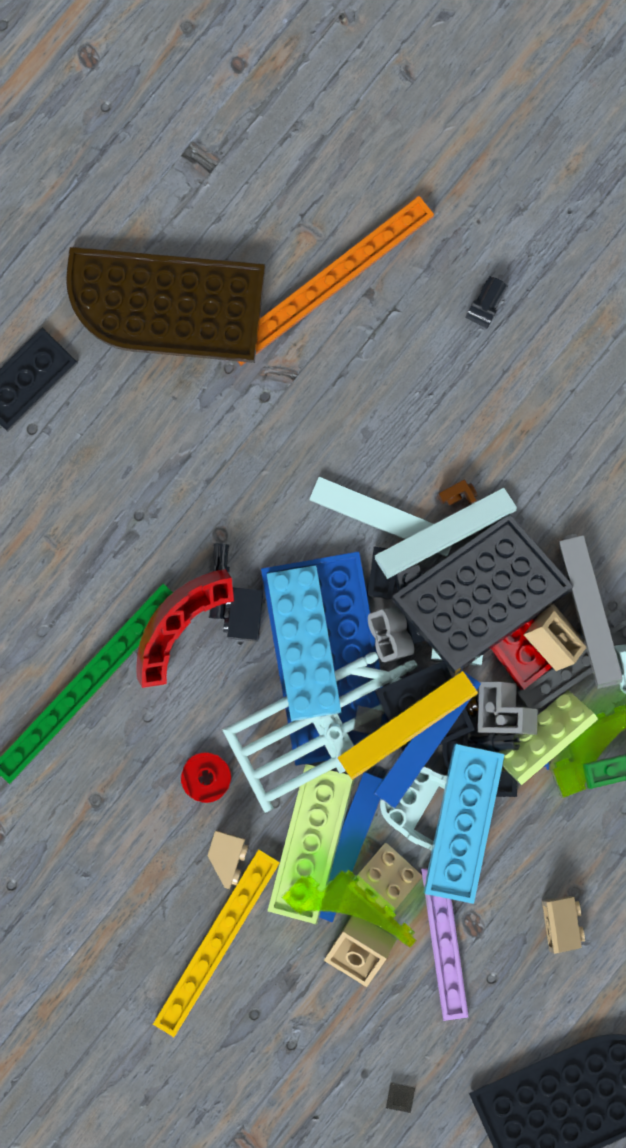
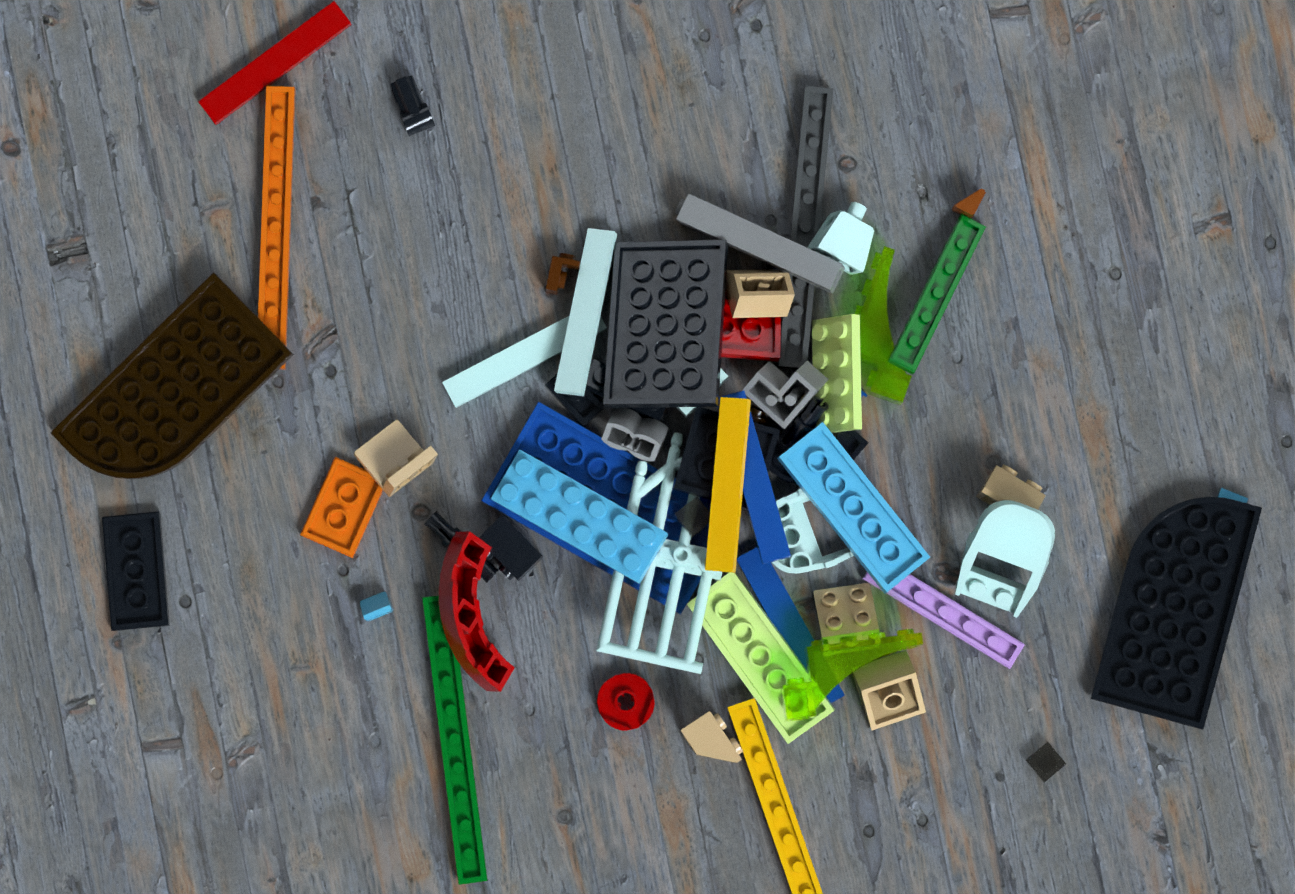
camera: 50 degrees left, 0 degrees up
(132, 557) = (376, 606): none -> medium azure slope
(181, 481) = (343, 508): none -> orange tile
(241, 487) = (394, 458): none -> tan bracket
(440, 189) = (275, 63): none -> red tile
(533, 946) = (1012, 535): none -> light aqua slope

